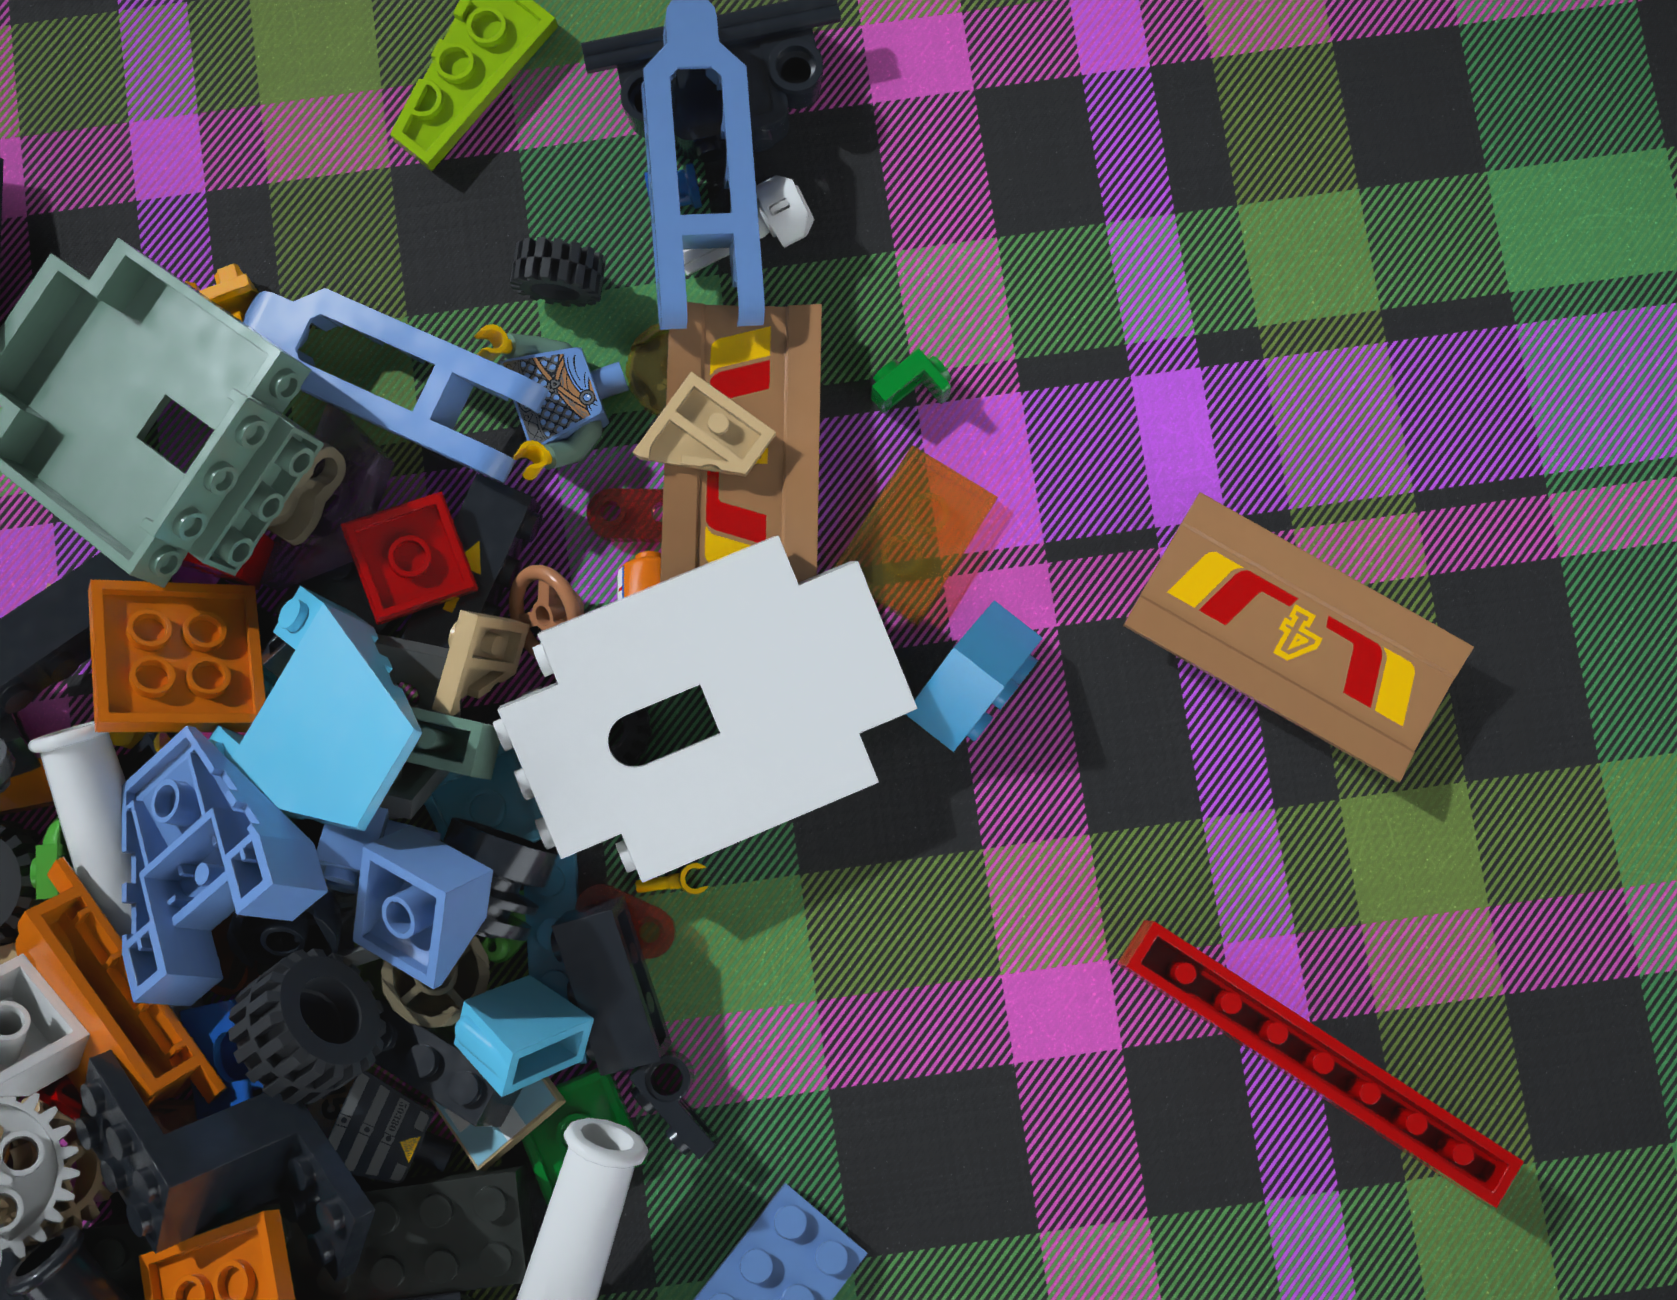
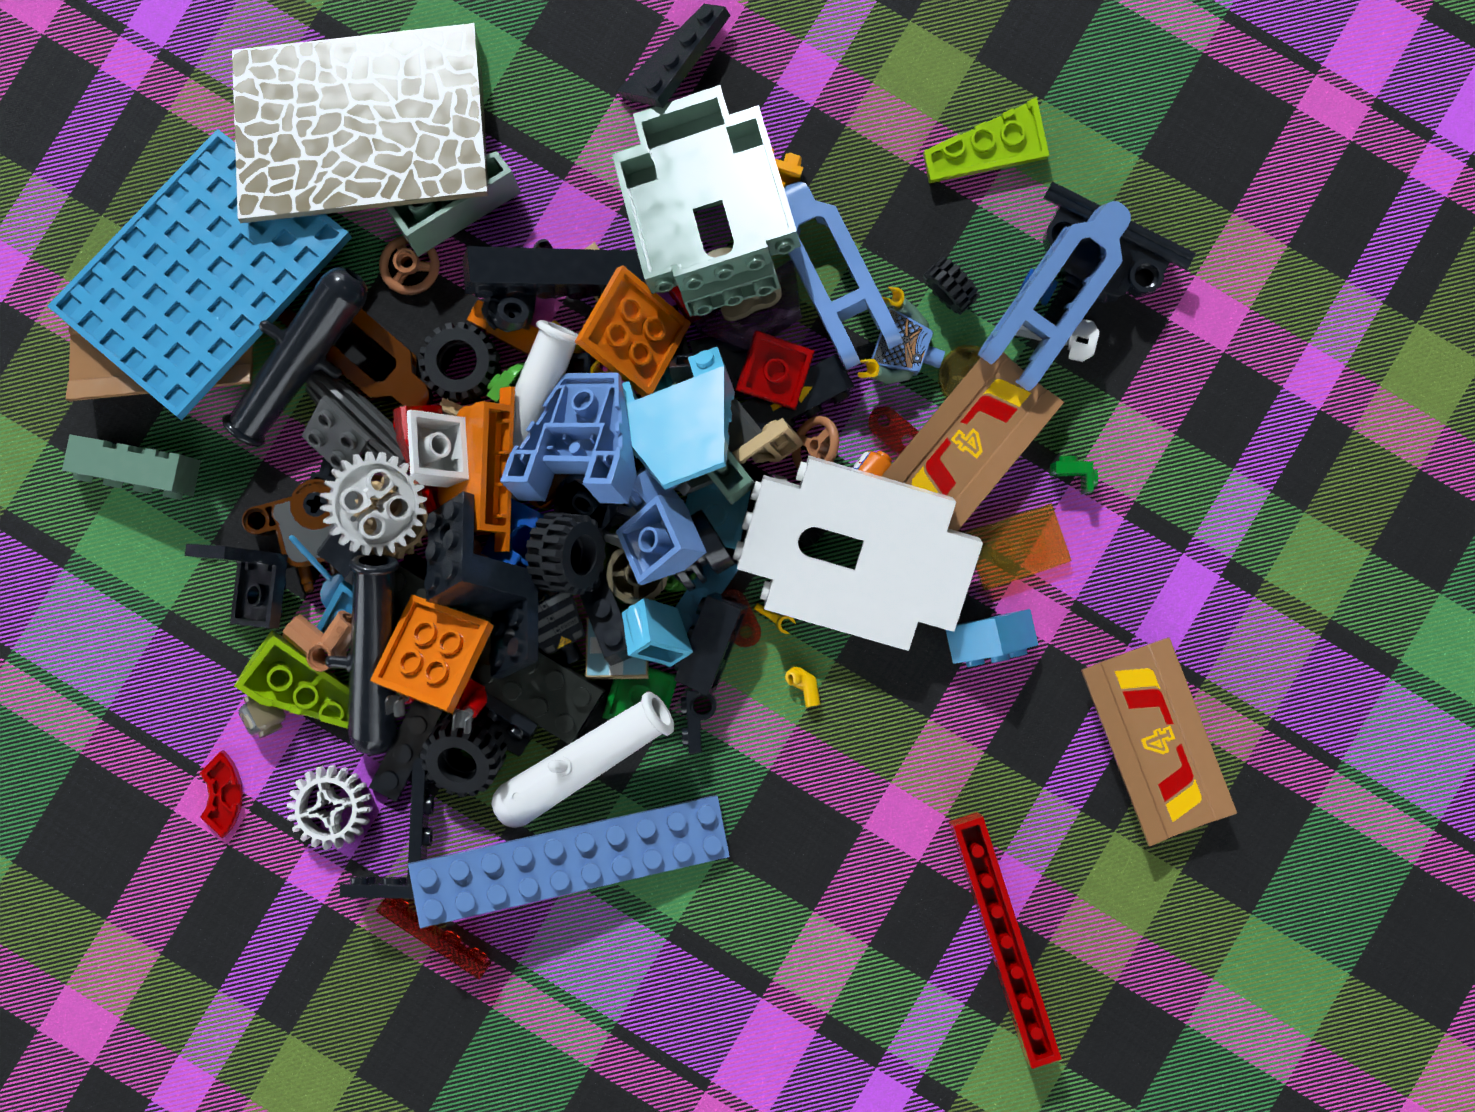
camera: 40 degrees right, 5 degrees up
(705, 432) = (960, 421): tan wing -> none
(782, 934) = (806, 682): none -> yellow arm

